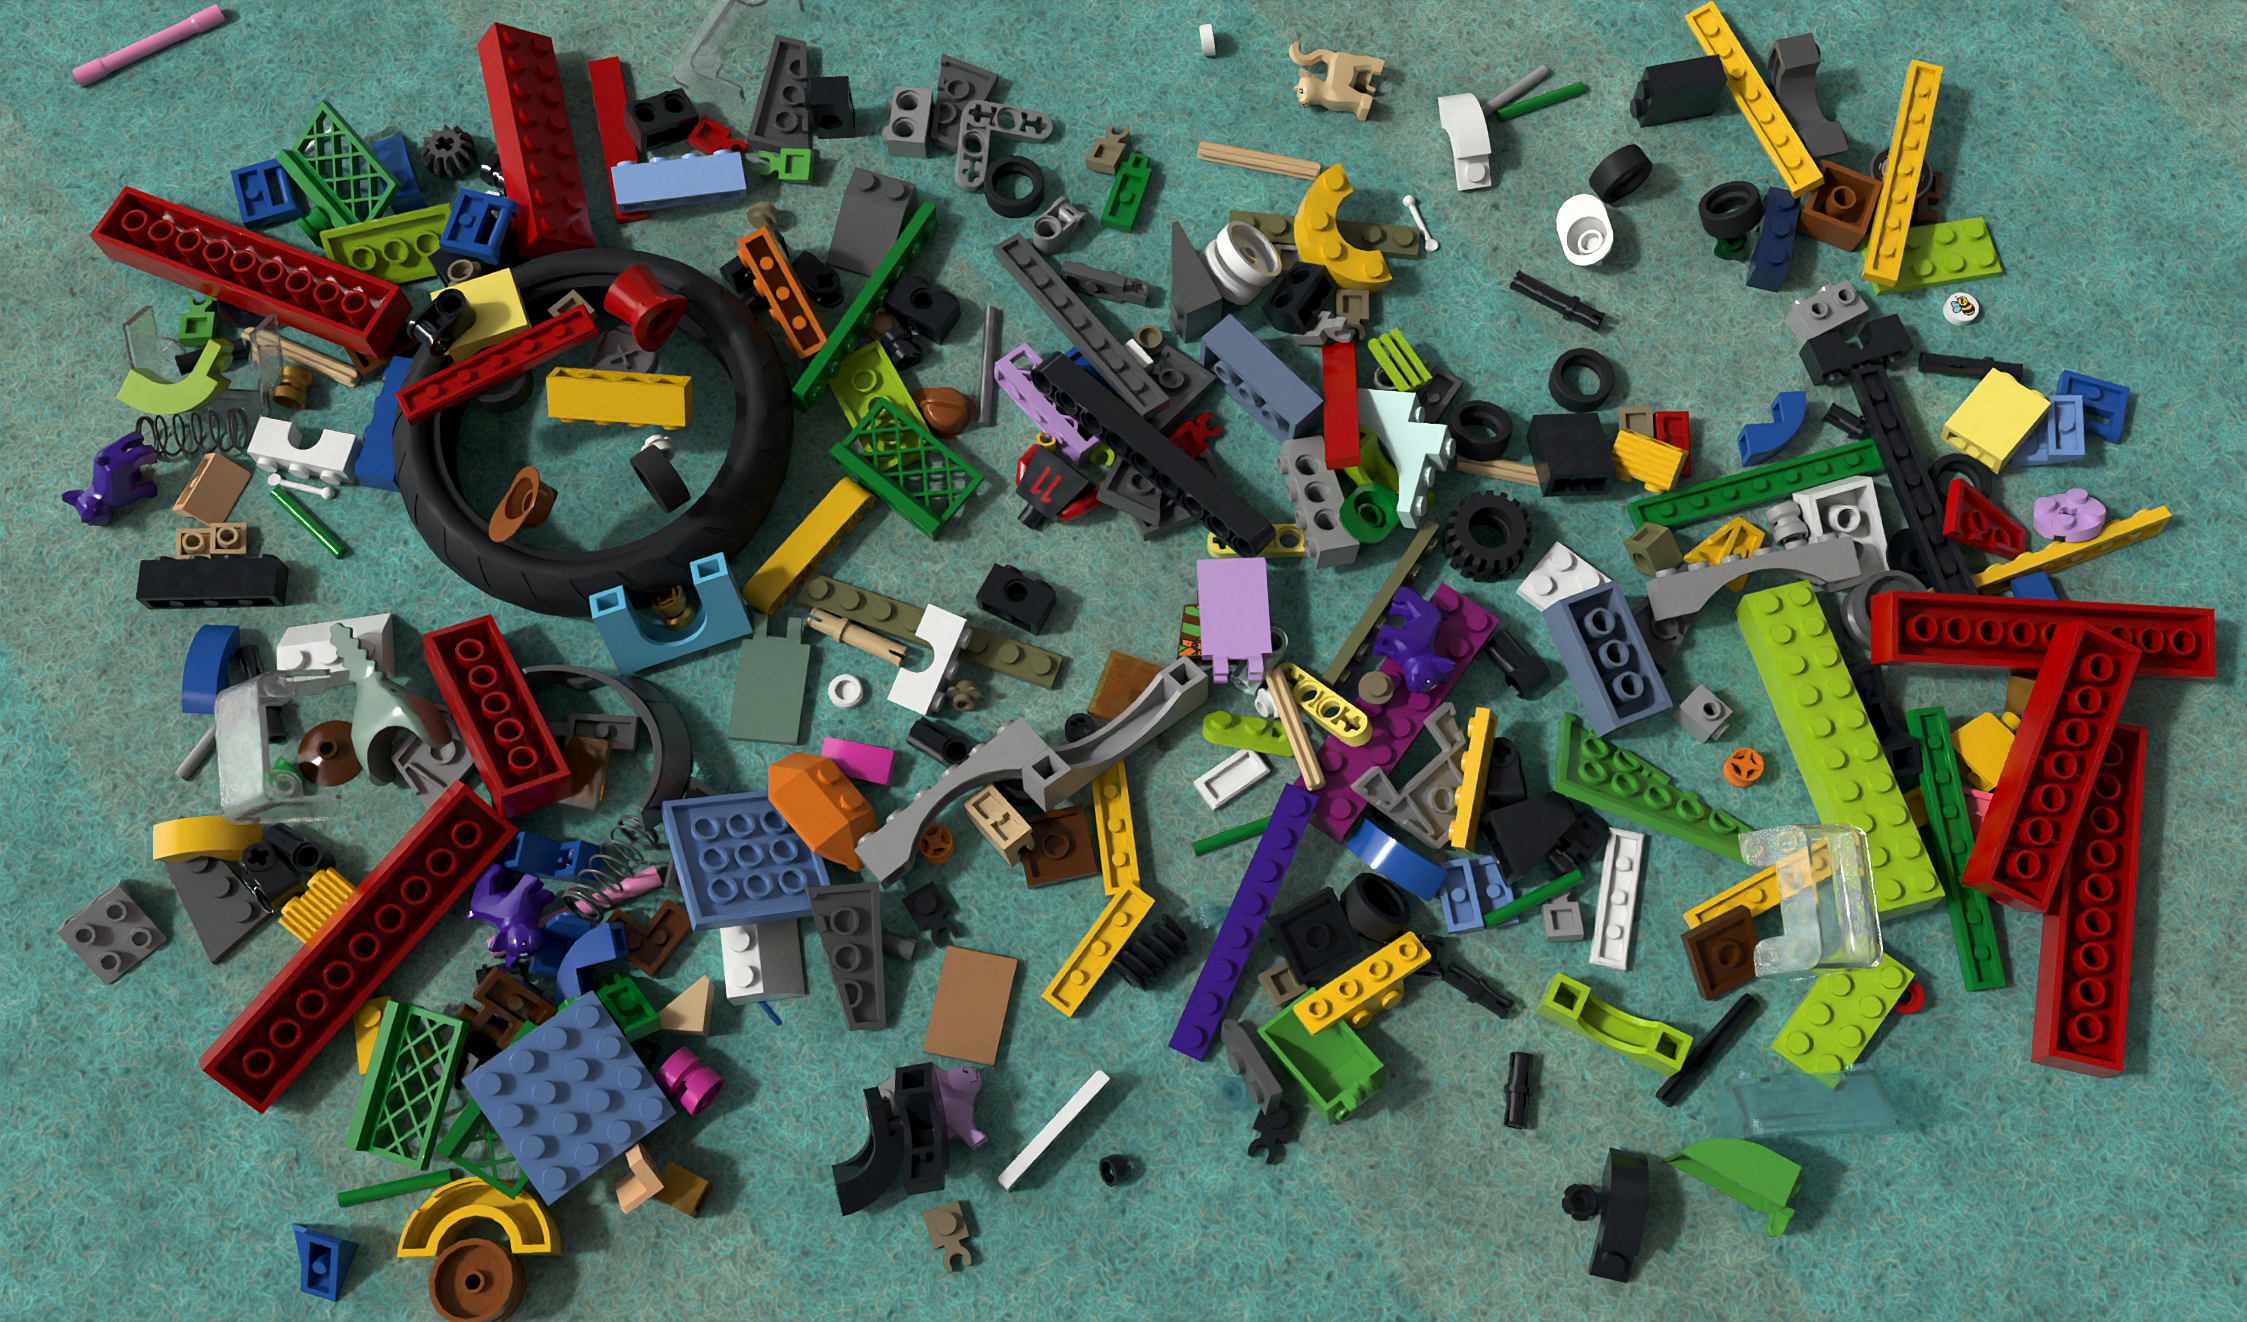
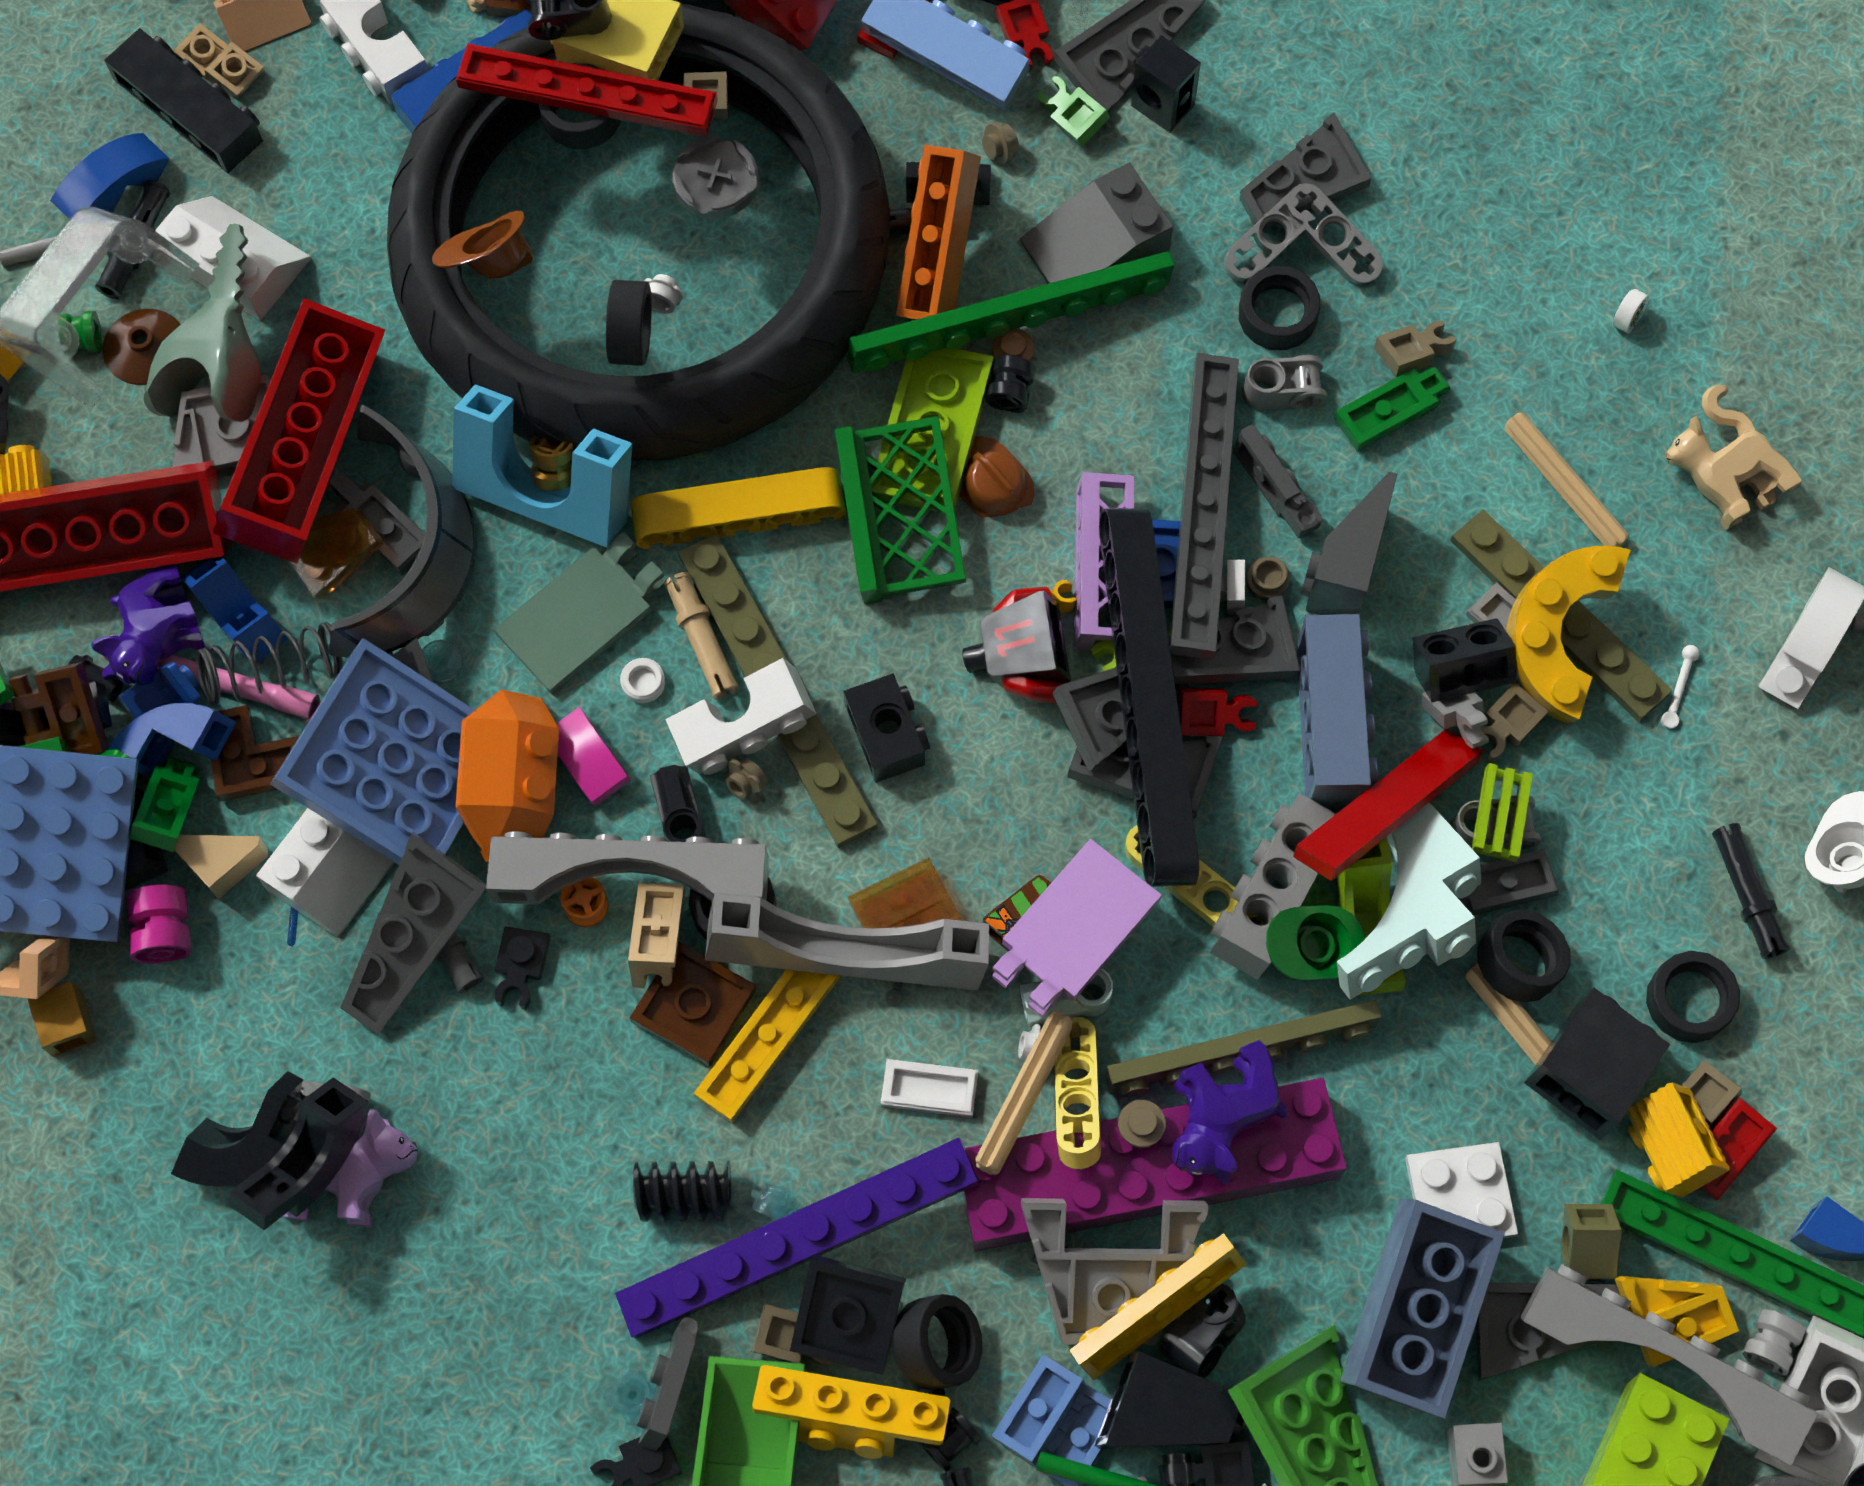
camera: 45 degrees right, 0 degrees up
(276, 480) = (327, 47): white hinge -> none
(298, 850) = (32, 411): black piece -> none
(308, 522) = (317, 109): green bar -> none
(619, 397) = (670, 213): yellow brick -> none
(645, 305) = (771, 141): red hat -> none
(819, 280) = (991, 245): black piece -> none
(915, 123) = (1238, 162): light grey brick -> none
(933, 322) = (1066, 382): black brick -> none
(947, 1229) = (254, 1275): dark tan plate -> none
(970, 1006) = (472, 1085): medium nougat tile -> none
(987, 367) = (1088, 463): flat silver bar -> none
(1053, 1130) = (432, 1273): white tile -> none
(1073, 720) = (827, 895): black bush -> none
(1098, 948) = (637, 1138): yellow plate -> none
(1118, 1167) = (454, 1362): black hinge -> none
(1230, 836) = (866, 1142): green bar -> none
(1241, 262) = (1430, 571): white wheel -> none
(1246, 733) = (981, 1053): lime plate -> none
(1397, 860) = (1003, 1320): blue brick -> none
(1482, 560) = (1397, 1098): black tyre -> none
(1520, 669) = (1328, 1234): black piece -> none

